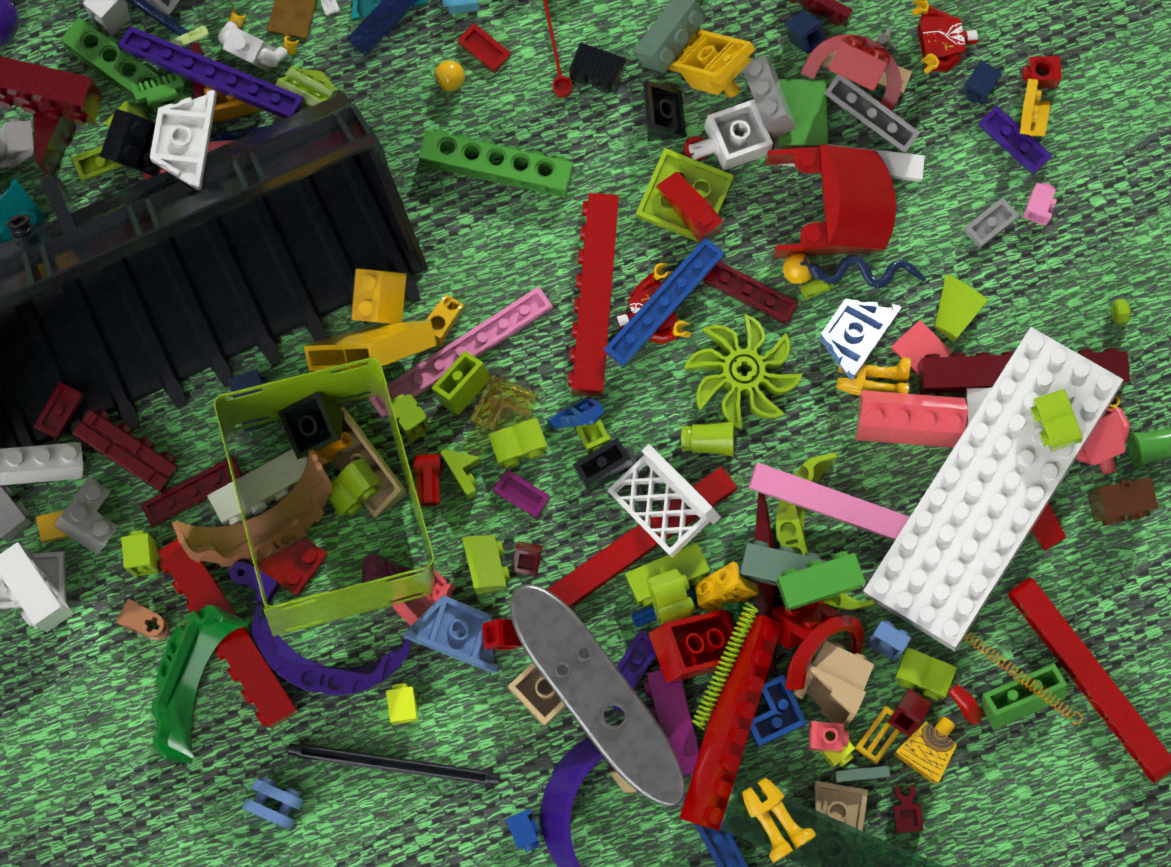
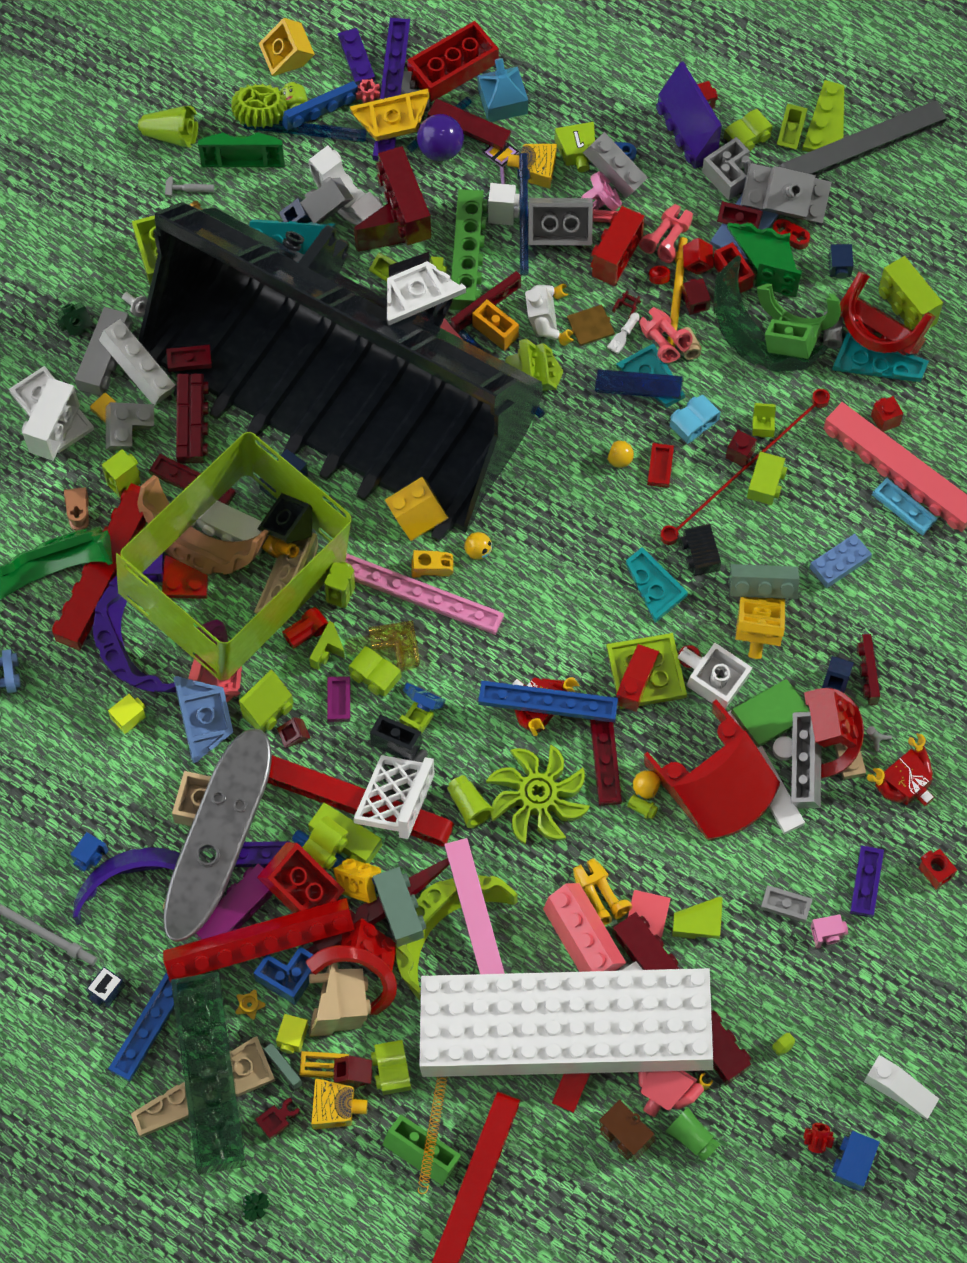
camera: 55 degrees right, 10 degrees down
(160, 93) = (464, 275): bright green piece -> none
(190, 36) = (516, 266): yellowish green tile -> none
(210, 73) = (500, 295): dark purple plate -> none
(353, 487) = (263, 579): lime brick -> none
(383, 342) = (375, 525): yellow brick -> none
(393, 764) = (83, 740): black piece -> none
(437, 140) = (592, 576): bright green brick -> none
(453, 265) = (478, 545): none -> yellow piece
(461, 382) = (391, 603): lime brick -> none
(500, 635) = (218, 743): red brick -> none
(595, 294) = (525, 654): red brick -> none
(603, 132) = (655, 584): none -> teal wing
(663, 112) = (700, 614): black slope -> none
(726, 665) = (296, 907): lime piece -> none
(736, 609) = (346, 891): dark green plant -> none
(769, 97) = (764, 678): light grey brick -> none
(774, 798) = (200, 996): yellow piece -> none
(780, 763) = (249, 998): none -> yellow plate
(817, 738) = (286, 1009): coral brick -> none
(820, 274) = (650, 799): dark blue animal -> none
(820, 580) = (402, 932): bright green brick -> none
(840, 126) = (782, 748): none -> white tile
(856, 333) = (625, 855): wing -> none
(888, 640) = (397, 1018): medium blue piece -> none
(967, 704) = (386, 1110): red arm -> none
(981, 83) = (894, 828): dark blue brick -> none
(1034, 112) = (898, 877): yellow bracket -> none
(1057, 420) = (642, 1026): lime brick -> none

